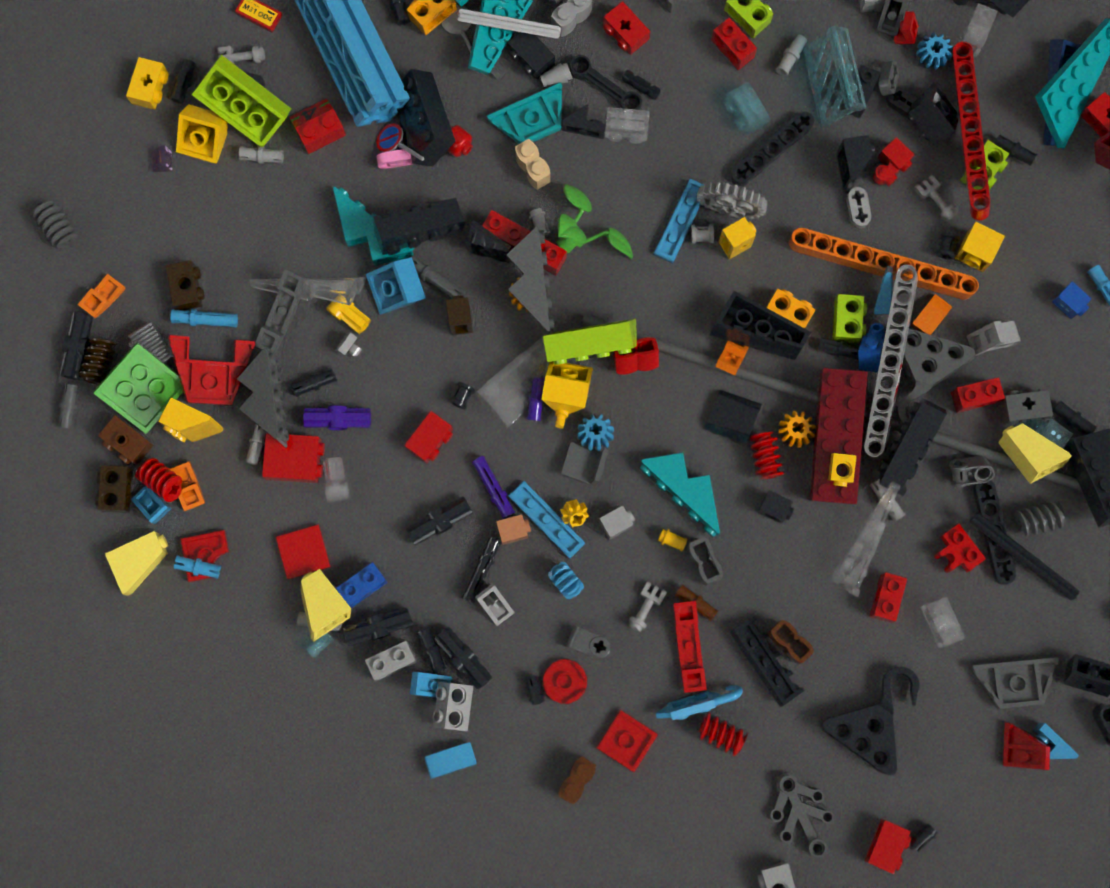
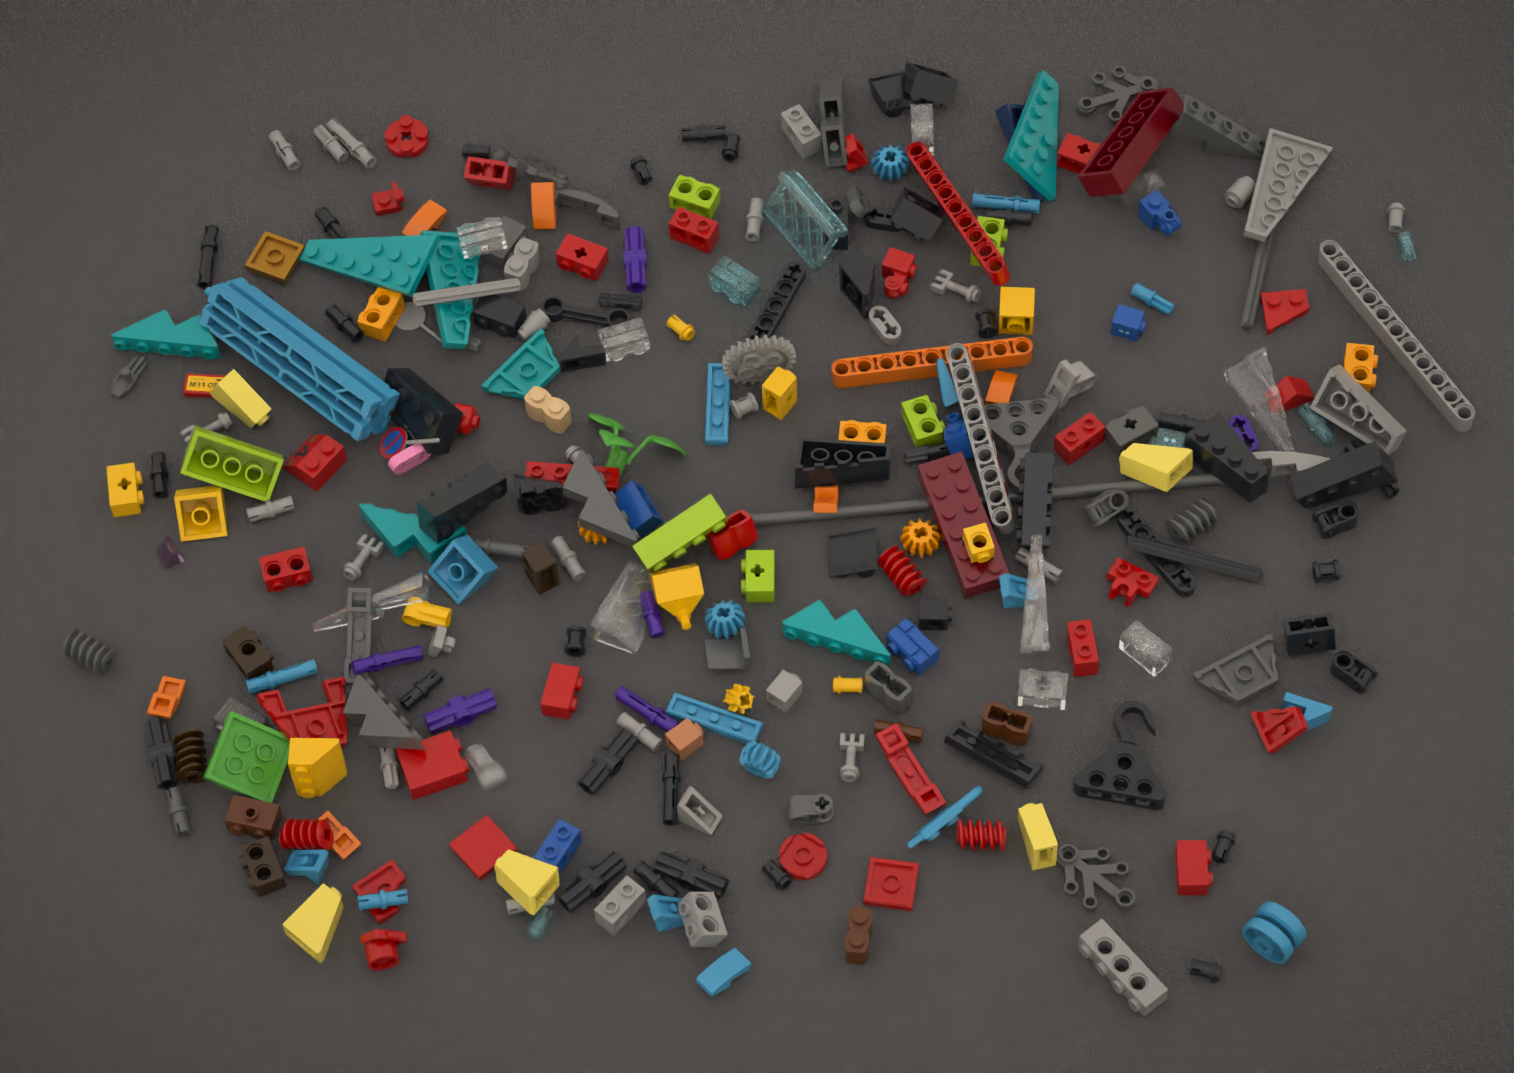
camera: 20 degrees left, 20 degrees down
(179, 610) = (382, 948): none -> red piece
(250, 215) = (284, 564): none -> red brick
(278, 42) = (241, 399): none -> light yellow slope
(296, 343) = (377, 662): none -> dark purple pin
(304, 244) = (352, 570): none -> light grey hinge
(478, 504) = (640, 731): none -> light grey pin
(489, 313) = (568, 558): none -> light grey pin
(566, 294) = (638, 507): none -> blue brick
(642, 416) = (760, 564): none -> lime brick
(671, 49) = (635, 259): none -> dark purple piece
(681, 134) = (684, 331): none -> yellow pin
(743, 530) = (912, 647): none -> blue brick
(769, 756) = (1037, 836): none -> light yellow slope
(843, 630) = (1051, 697): none -> clear brick
(854, 517) = (1012, 590): none -> dark azure slope
(1019, 135) = (1003, 203): none -> dark azure pin

